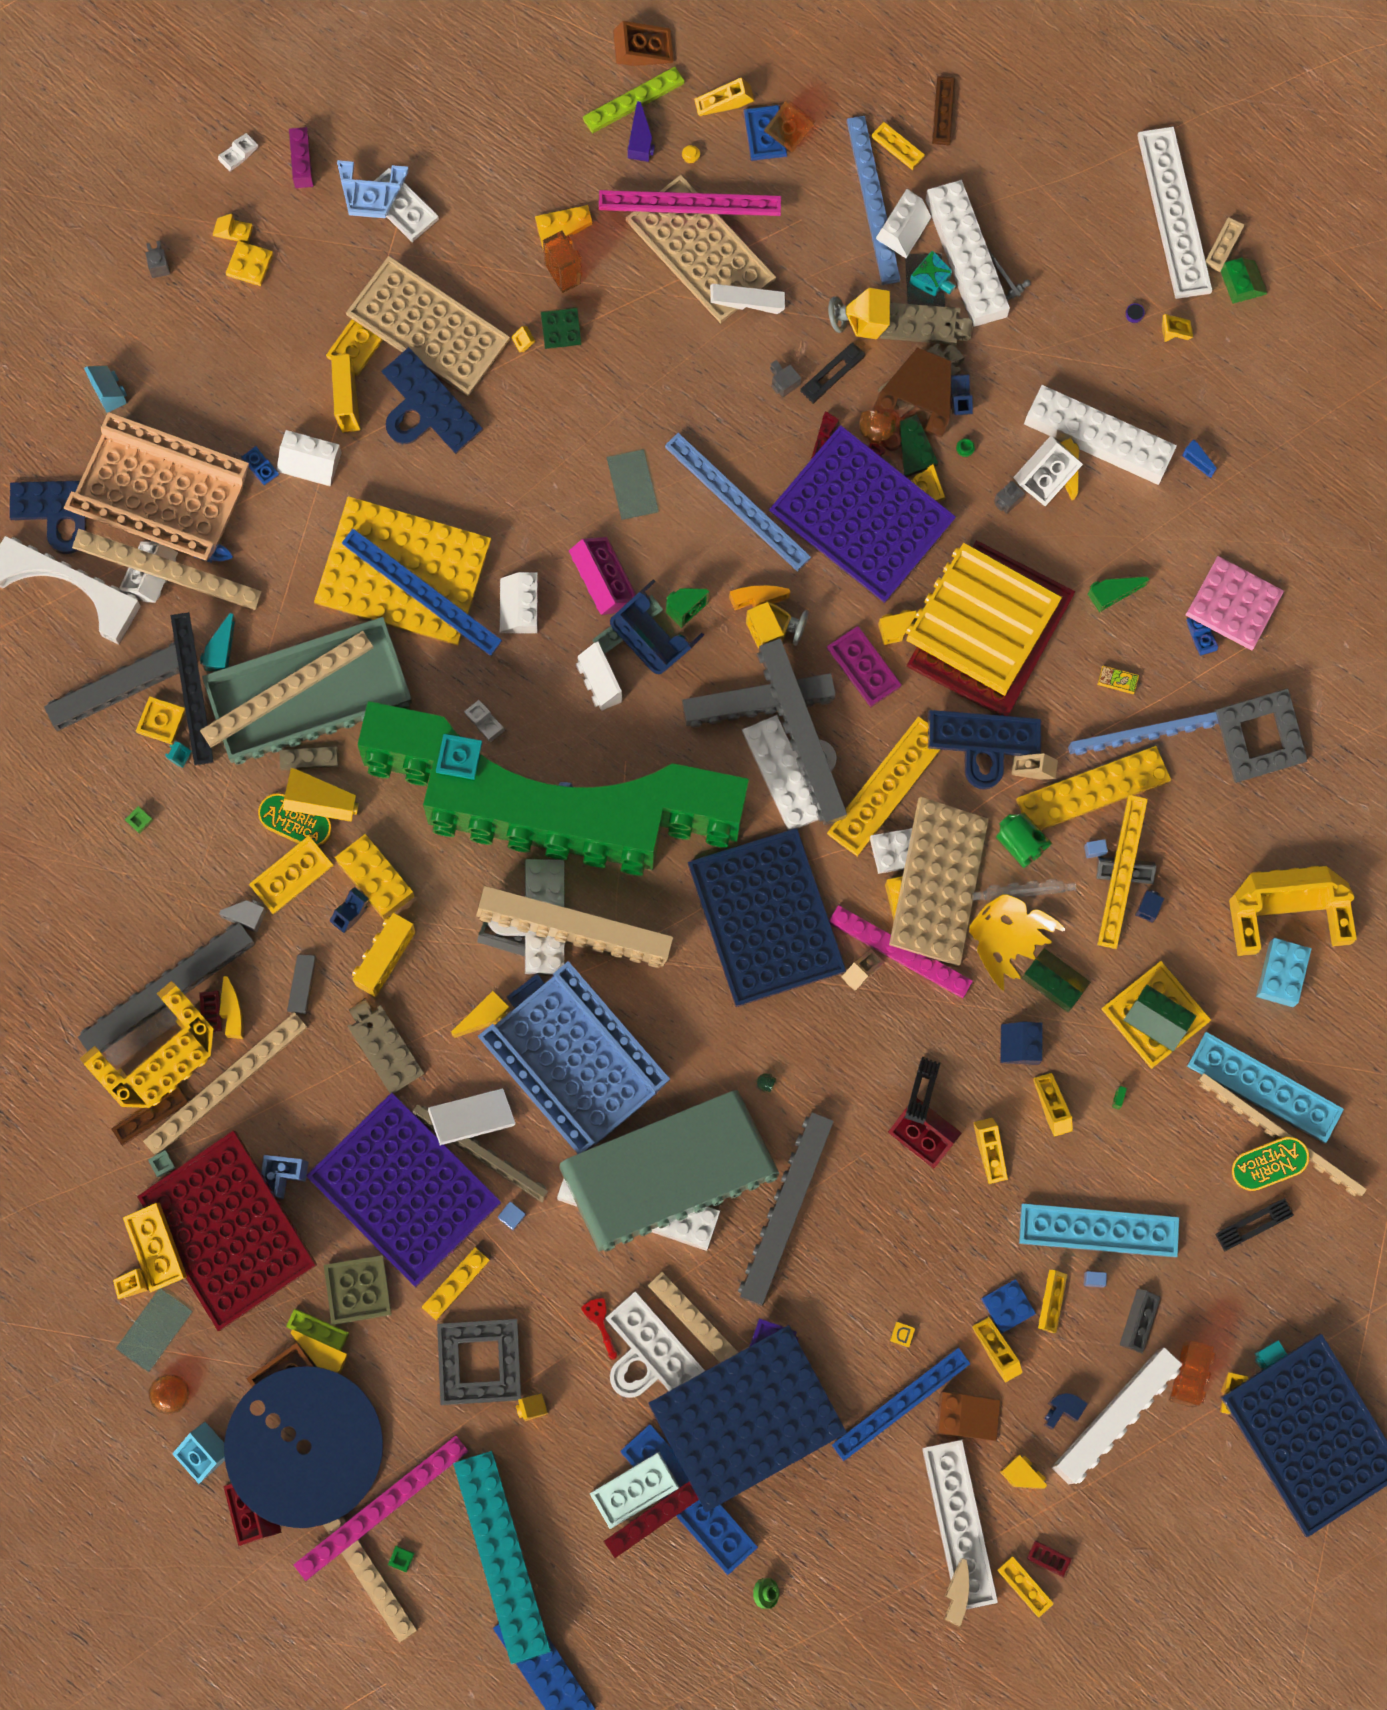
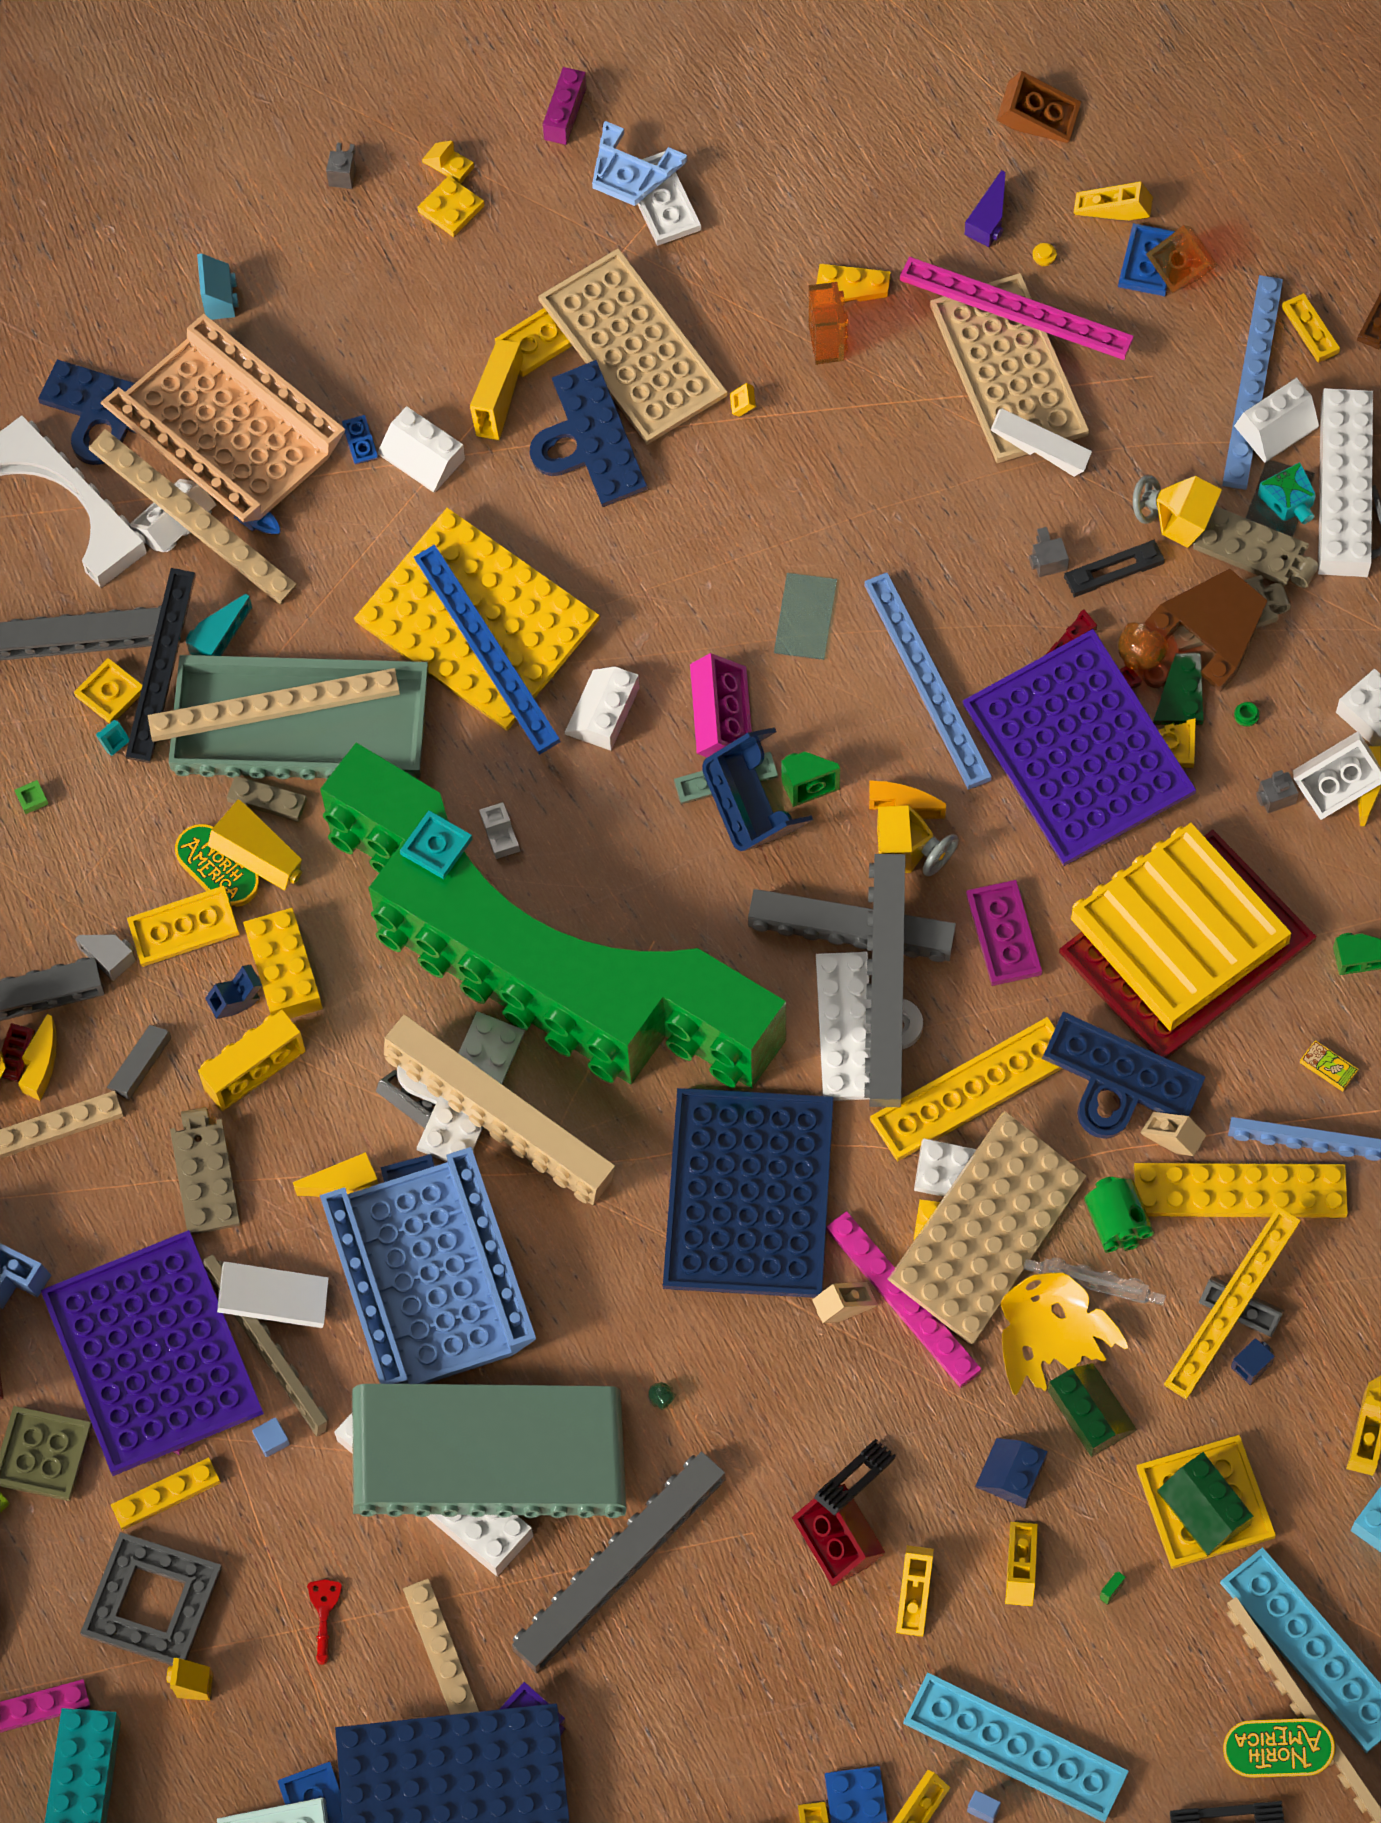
camera: 30 degrees right, 10 degrees down
(239, 152) = (496, 77): white slope -> none
(561, 327) = (794, 401): dark green plate -> none
(599, 677) = (661, 827): white slope -> none
(627, 102) = (985, 171): lime plate -> none
(651, 1344) = (373, 1661): white plate -> none
(894, 627) = (1062, 895): yellow slope -> none
(902, 1334) = (702, 1779): yellow tile -> none
(960, 395) = (1265, 646): dark blue brick -> none
(1096, 848) = (1211, 1263): medium blue piece -> none

